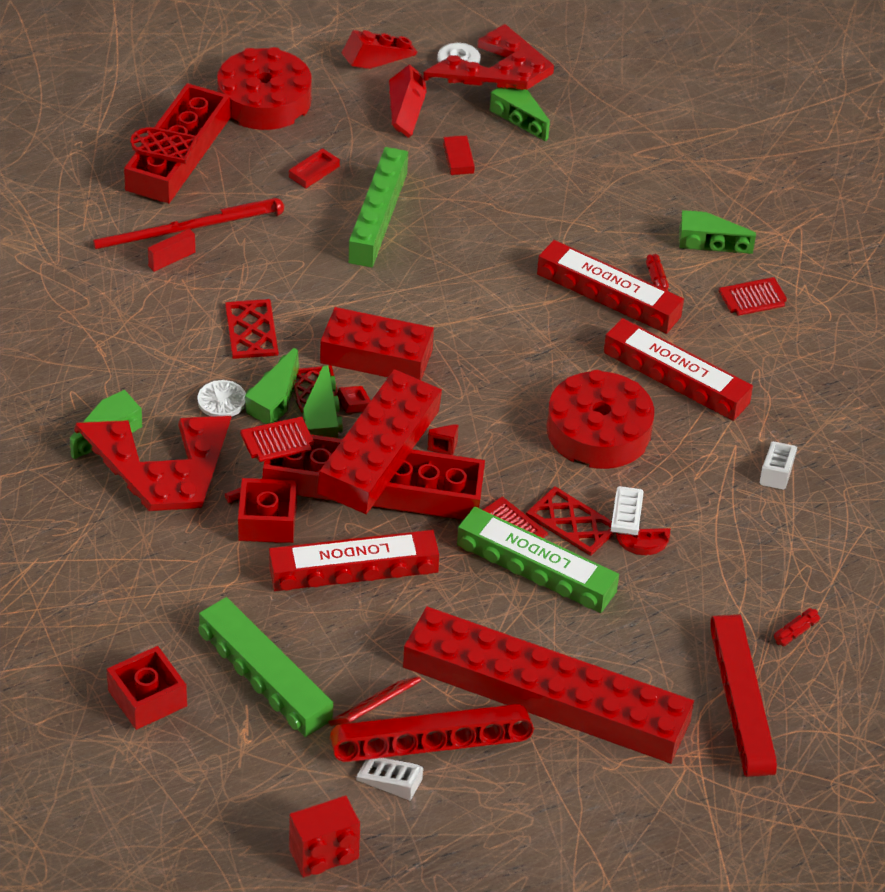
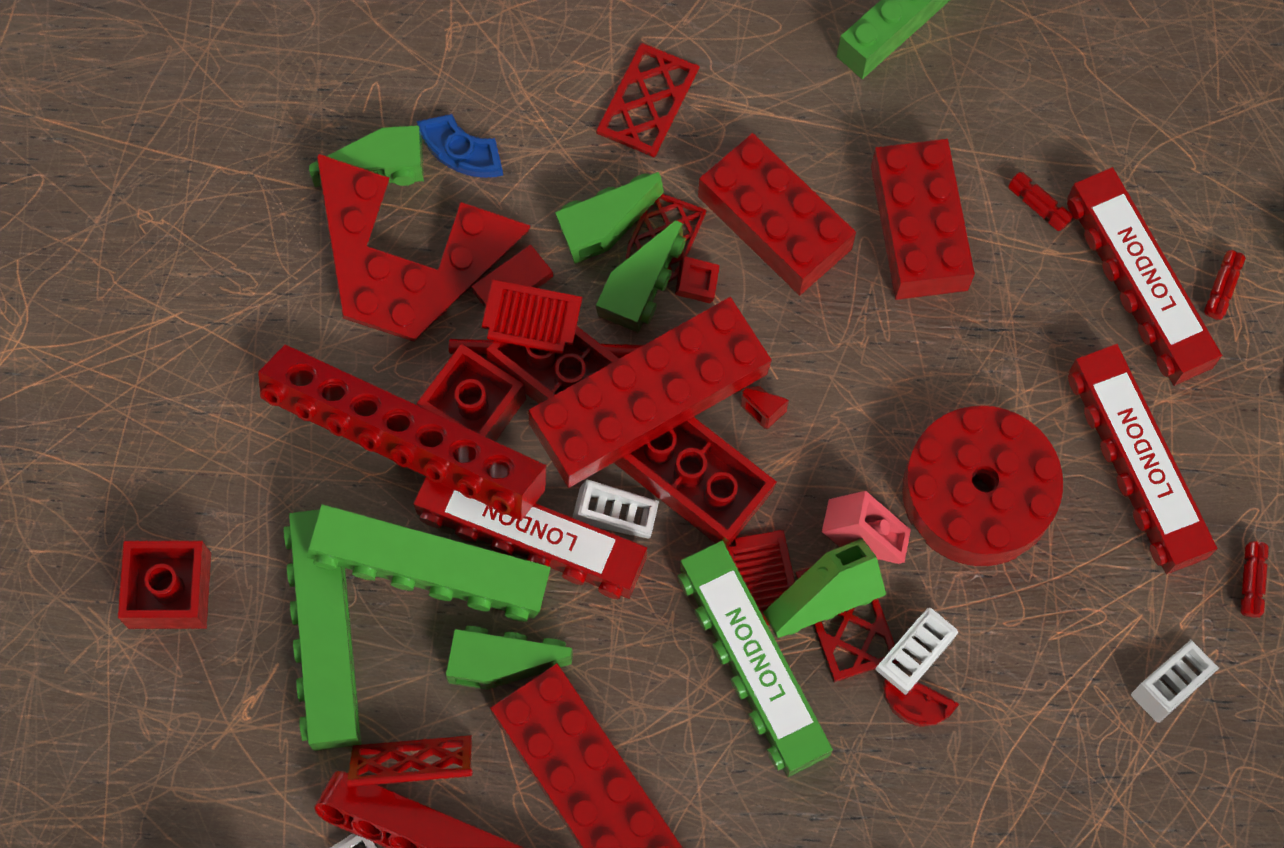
camera: 35 degrees right, 25 degrees up
(159, 399) = (460, 150): none -> blue tile
(221, 398) = (538, 191): white wheel -> none
(235, 455) = (524, 269): none -> red tile
(237, 538) = (403, 432): none -> red brick
(306, 595) = (428, 562): none -> bright green brick
(385, 631) = (494, 660): none -> bright green slope
(390, 525) = (618, 497): none -> white slope
(464, 312) = (922, 219): none -> red brick
(523, 279) = (1040, 201): none -> red axle
(549, 467) = (863, 517): none -> coral slope
(555, 499) = (830, 587): none -> bright green slope
(783, 398) = (1254, 579): none -> red axle

